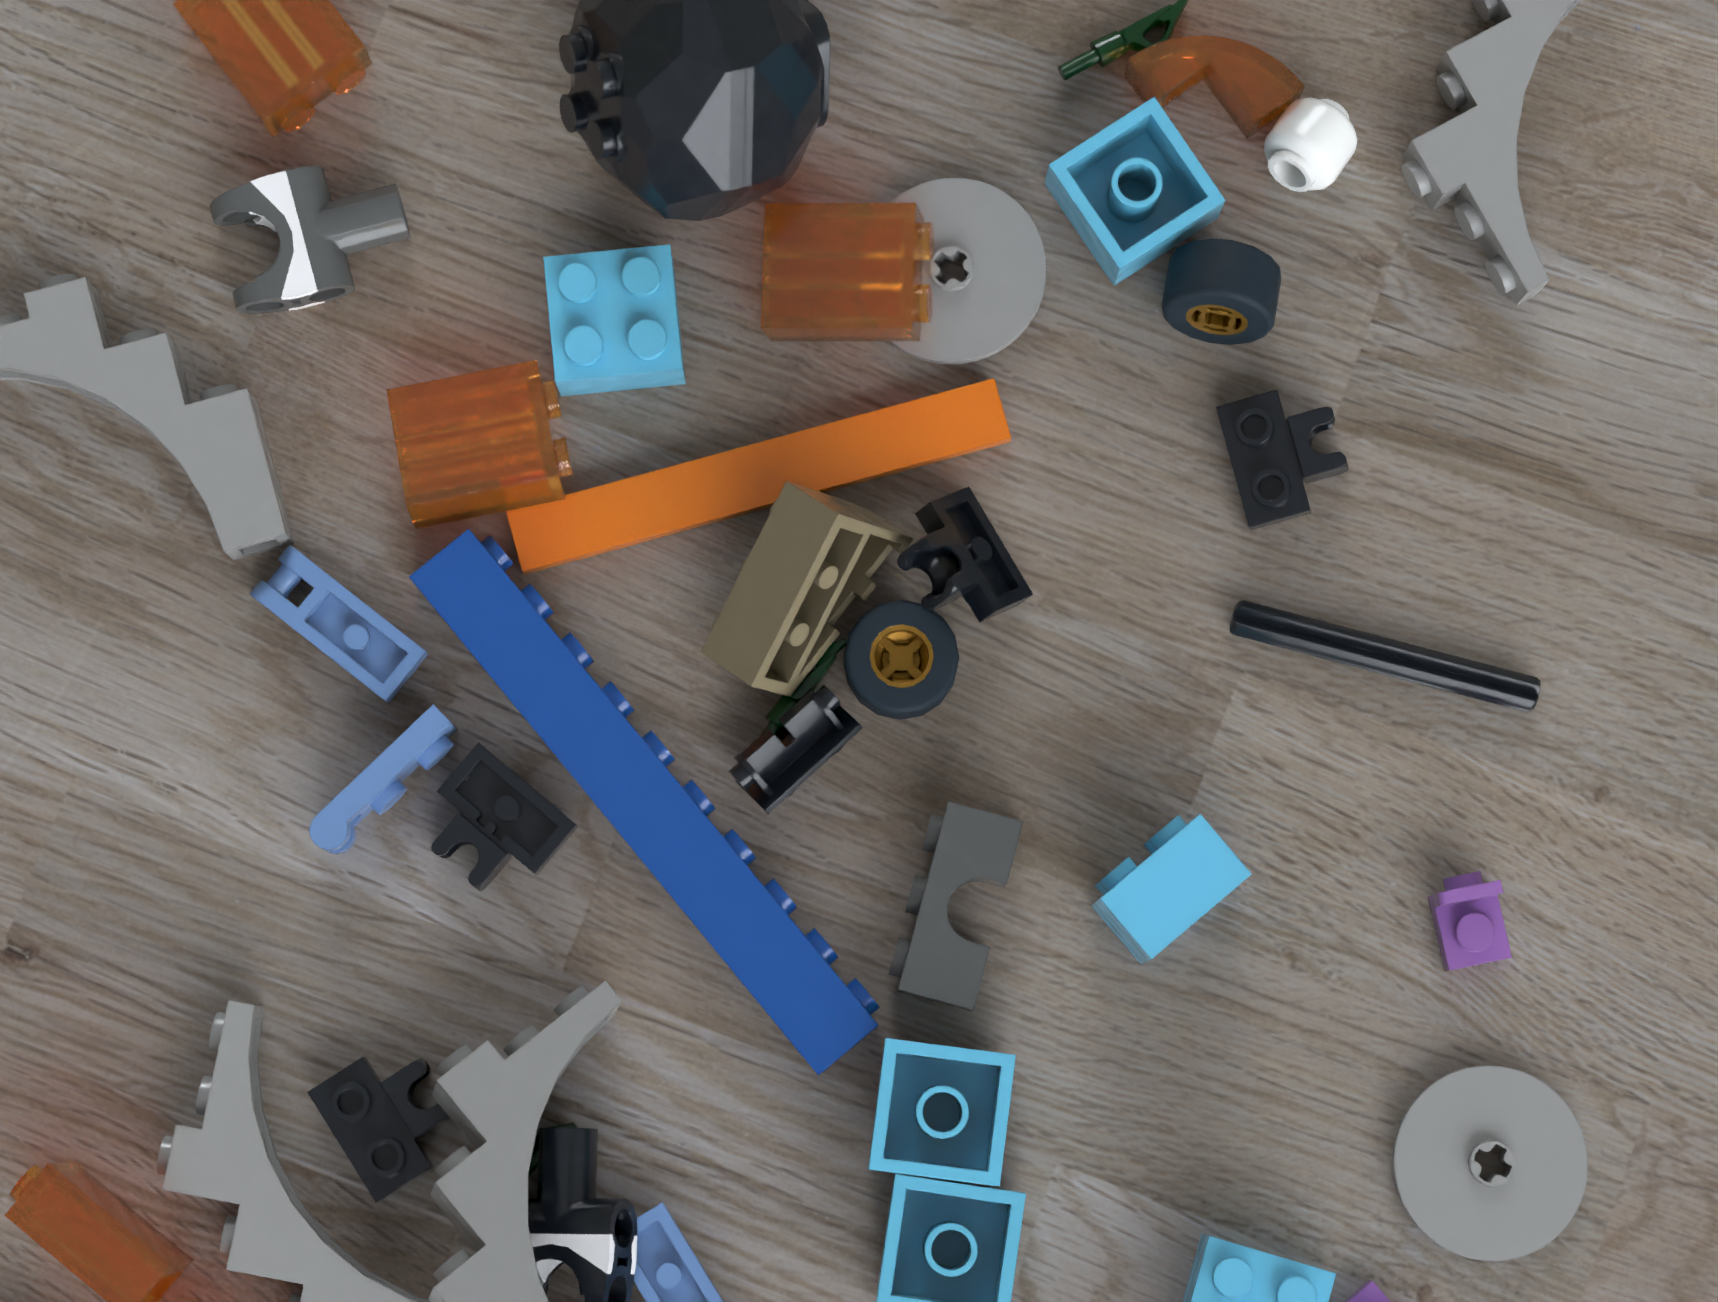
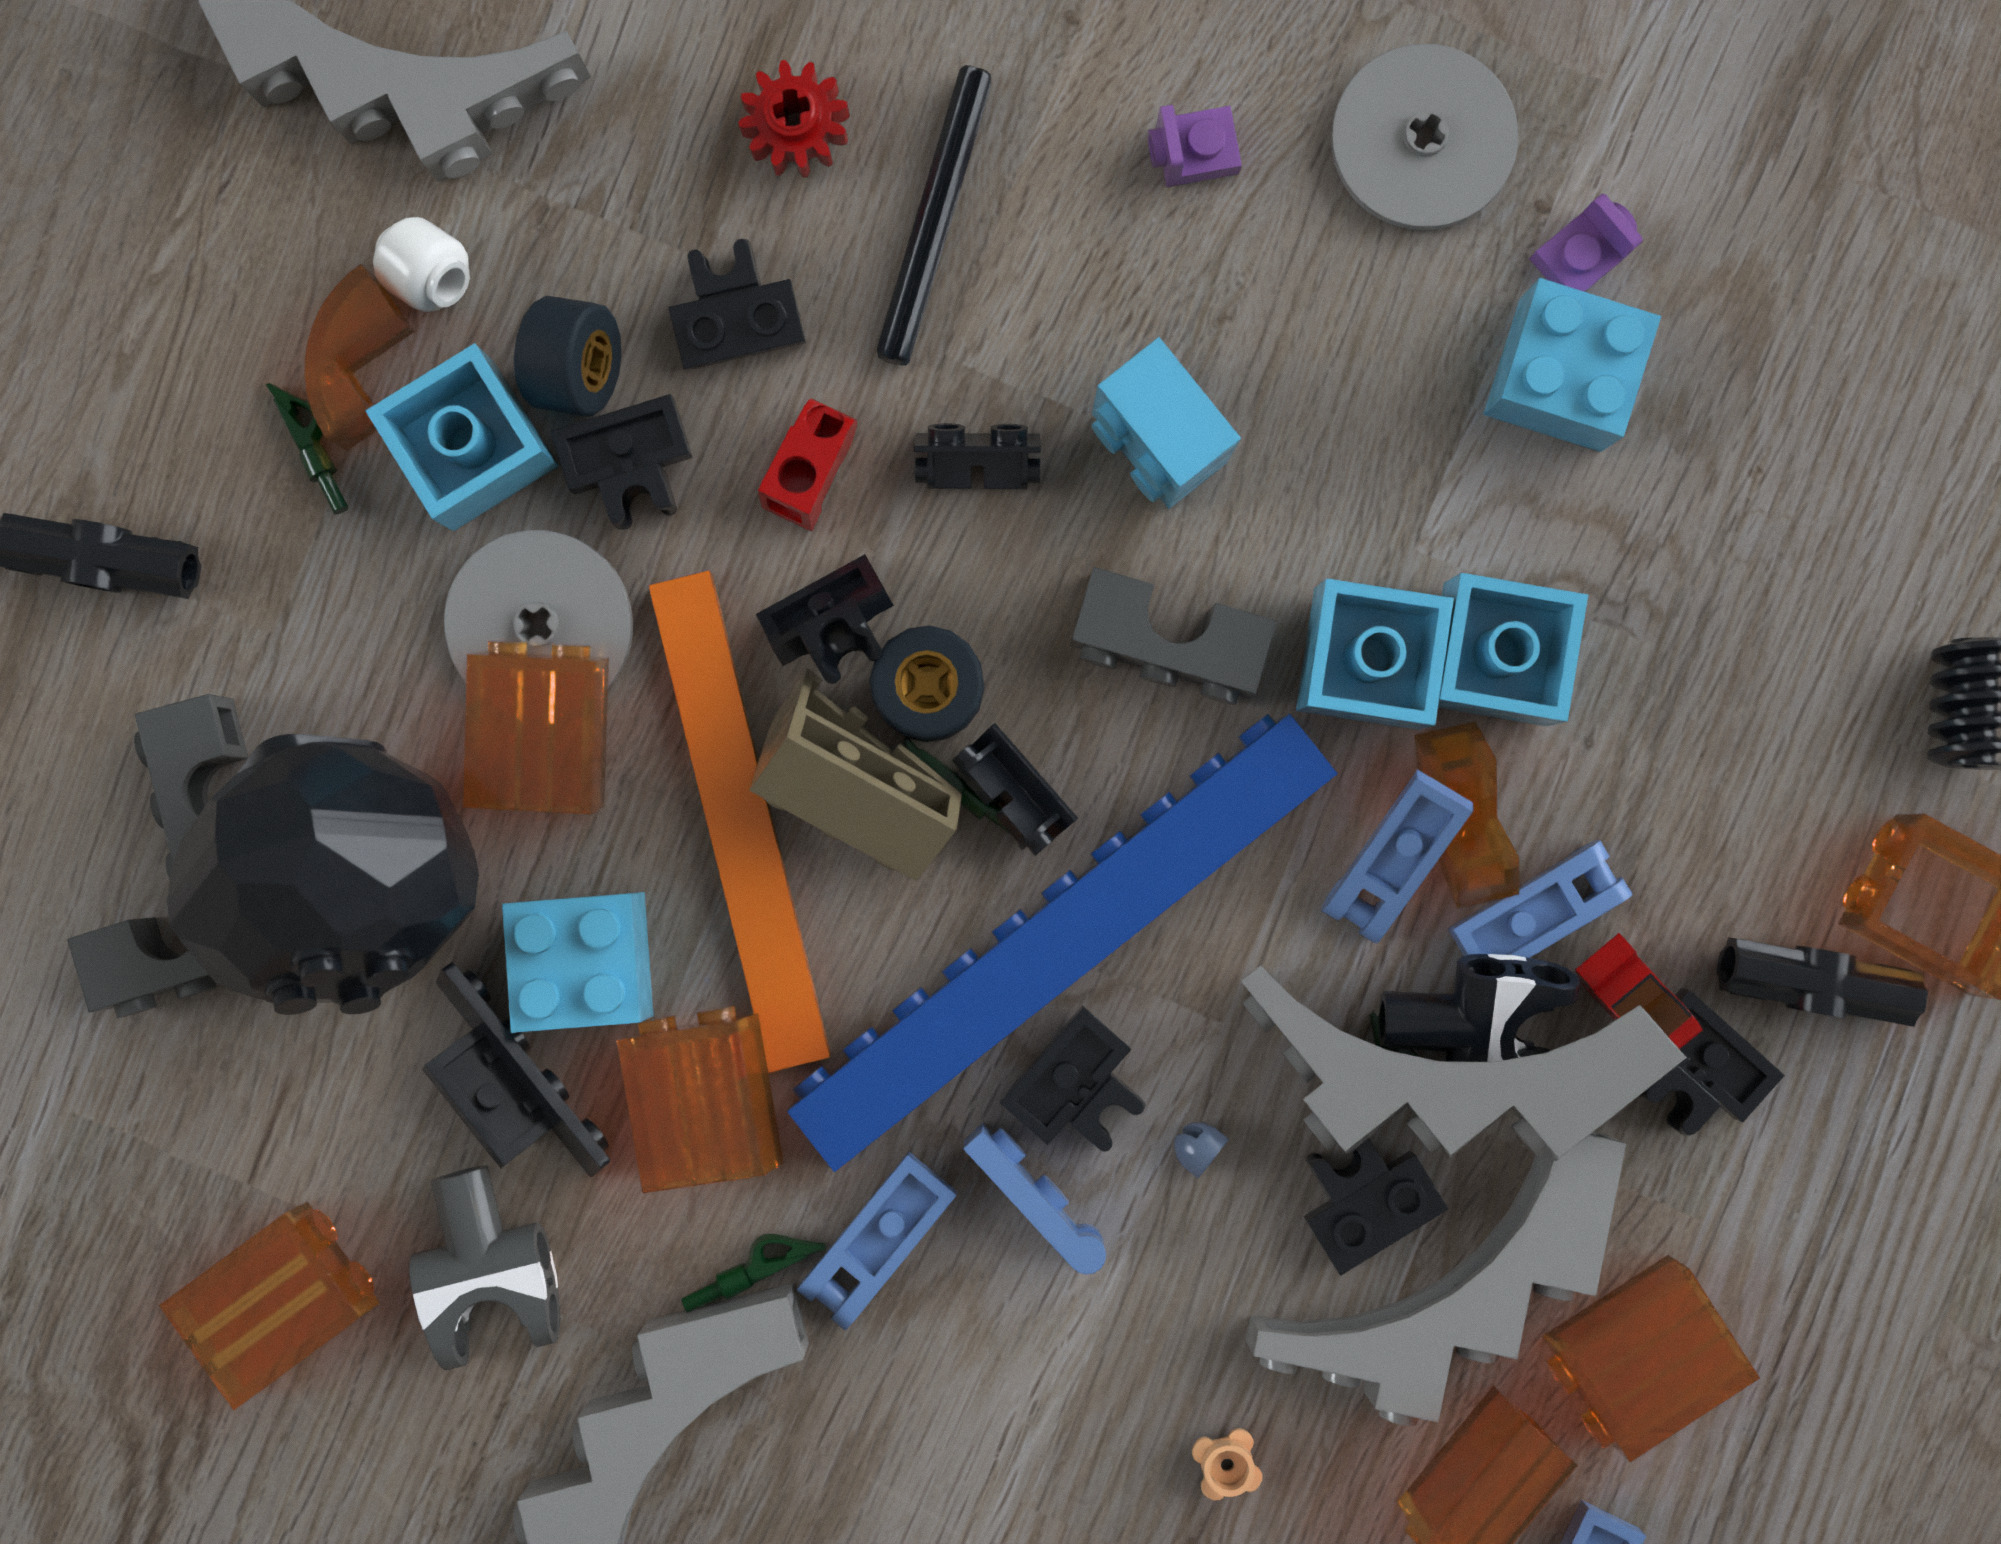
camera: 85 degrees left, 5 degrees up
(98, 974) = (1227, 1482): none -> light nougat plate
(302, 494) = (743, 1276): none -> dark green hand
(435, 947) = (1198, 1146): none -> sand blue hinge
(487, 248) = (500, 1087): none -> black bracket
(736, 1141) = (1398, 855): none -> medium blue plate
(780, 1214) = (1480, 859): none -> clear orange brick
(1123, 533) = (807, 464): none -> red leg
(1124, 351) = (625, 455): none -> black plate
(1140, 681) = (954, 453): none -> black hinge
(1487, 490) = (771, 112): none -> red gear

